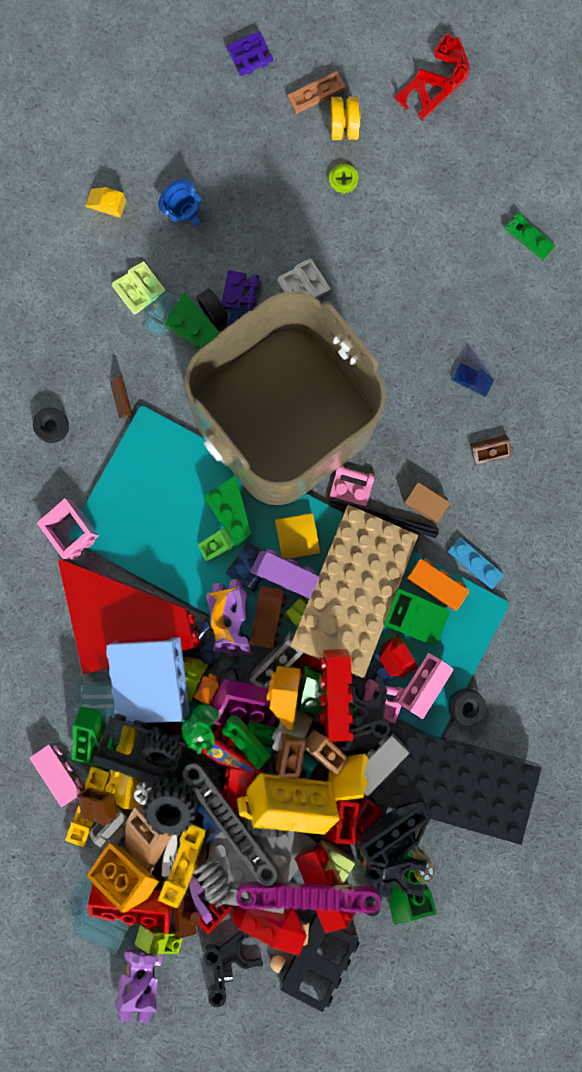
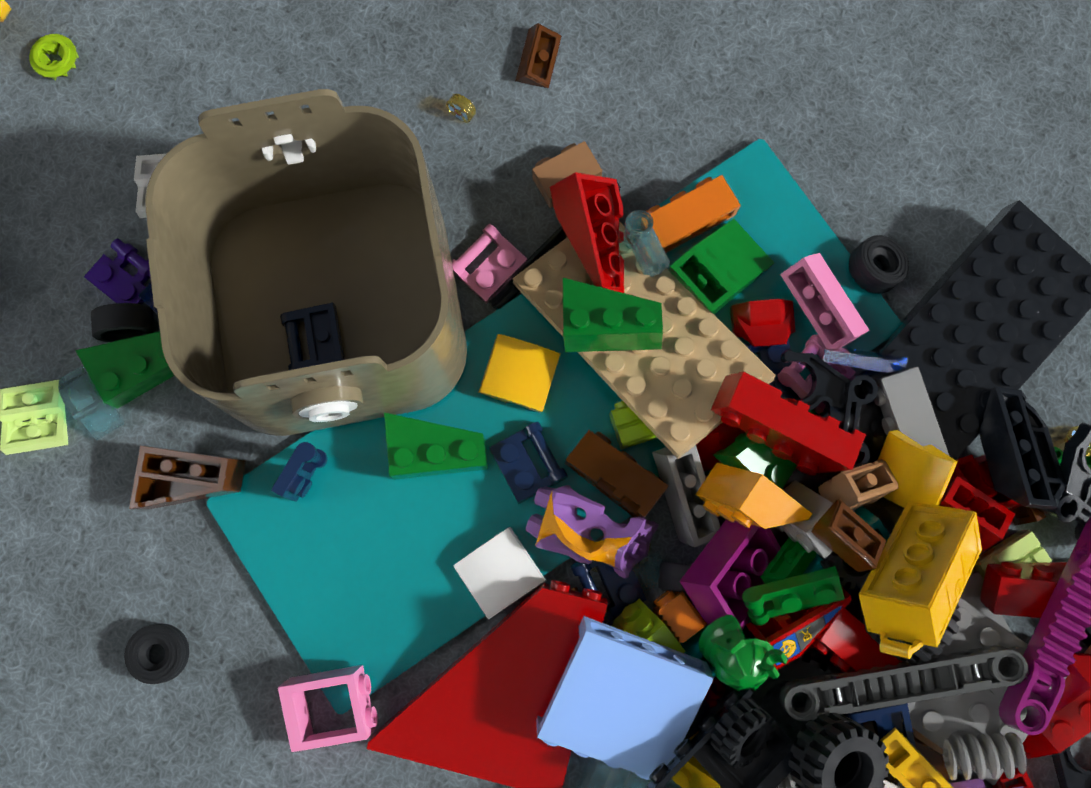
camera: 65 degrees left, 5 degrees down
(121, 397) = (176, 526): reddish brown slope -> none
(148, 386) = (179, 477): none -> reddish brown wedge
(177, 447) = (296, 475): none -> dark blue plate
(183, 582) = (499, 572): none -> white slope
(215, 545) = (470, 495): bright green slope -> none
(259, 419) = (321, 332): none -> dark blue plate
(285, 573) = (566, 413): medium lavender brick -> none
(346, 569) = (608, 320): none -> green wedge
(399, 722) = (865, 359): none -> clear blue tile
(402, 568) = (645, 244): none -> clear light blue piece
(403, 529) = (590, 217): none -> red wedge
(435, 422) = (461, 107): none -> clear yellow tile
(474, 380) = (429, 32): clear blue slope -> none
(475, 563) = (683, 155): dark azure plate -> none

